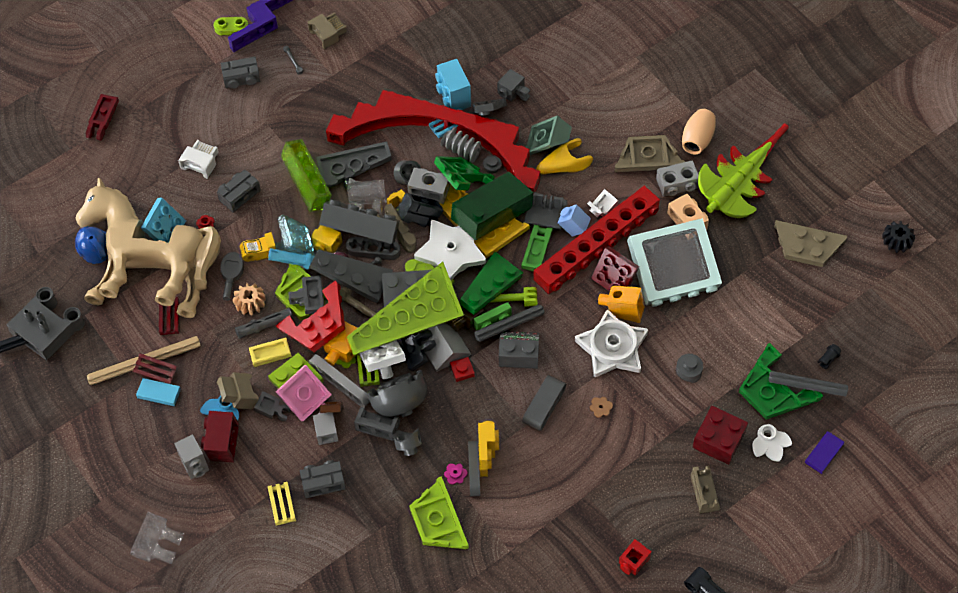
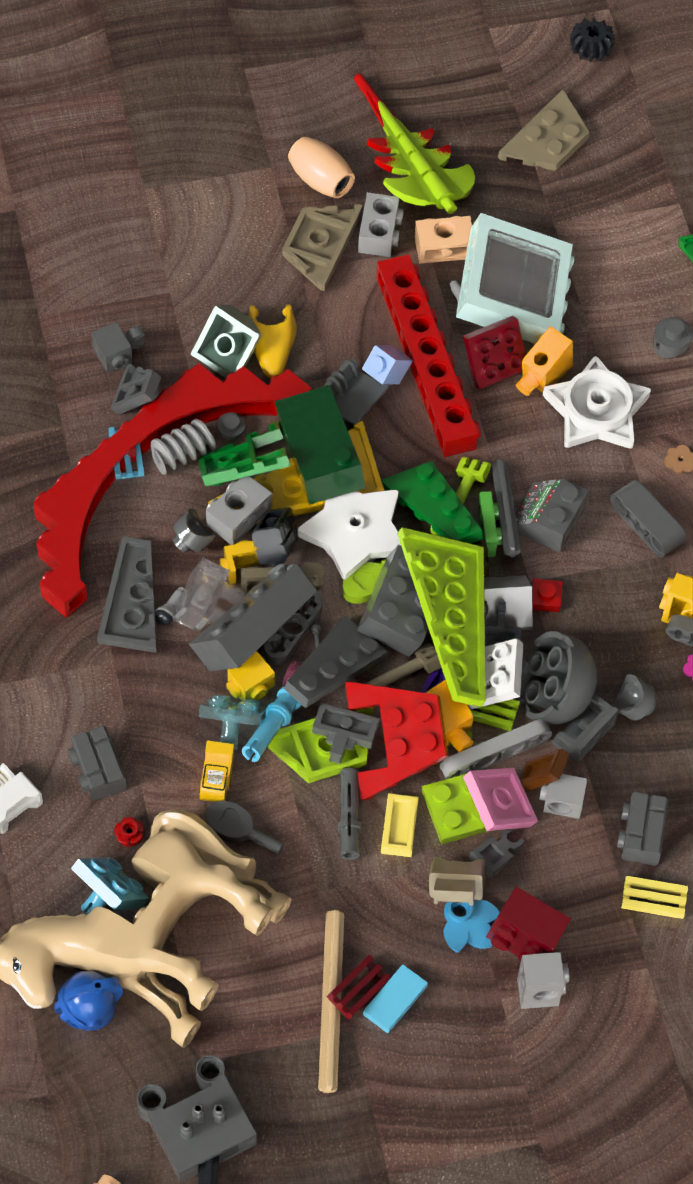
camera: 70 degrees left, 0 degrees up
(147, 540) = (645, 1084): clear brick -> none
(176, 319) = (277, 930): dark red tile -> none
(249, 299) = (309, 809): light nougat gear -> none
(305, 174) = (125, 660): clear neon green brick -> none
(453, 85) = (80, 411): medium azure brick -> none
(536, 248) = (401, 429): bright green plate -> none
(603, 204) = (374, 323): white bracket -> none

